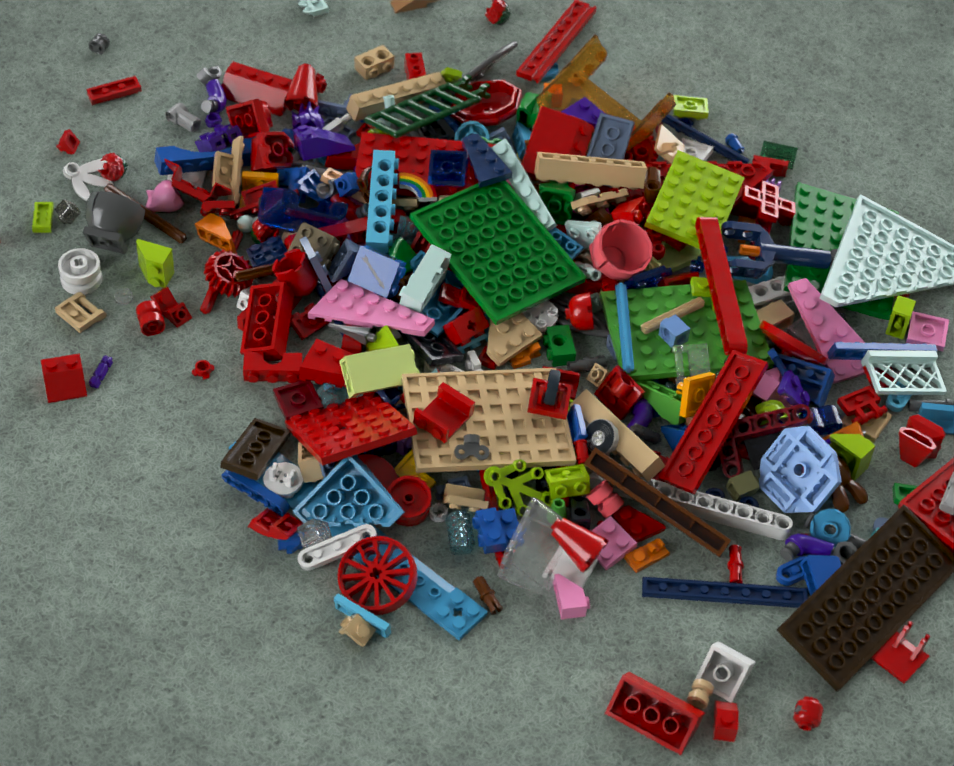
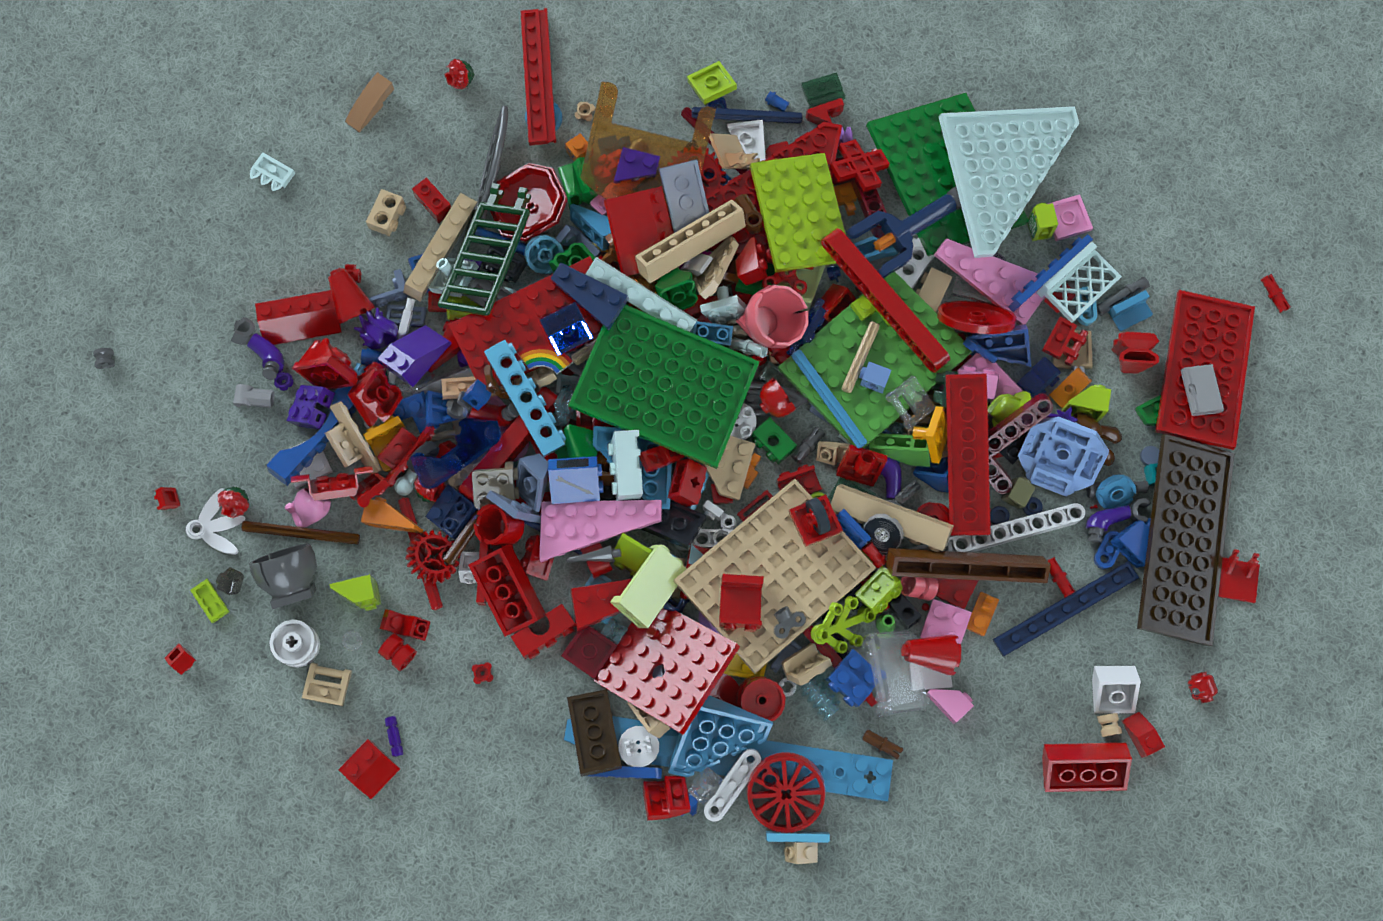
camera: 30 degrees left, 25 degrees up
(113, 90) = (161, 406): red plate -> none
(451, 75) = (471, 189): lime plate -> none
(791, 387) = (1009, 372): dark purple wing -> none

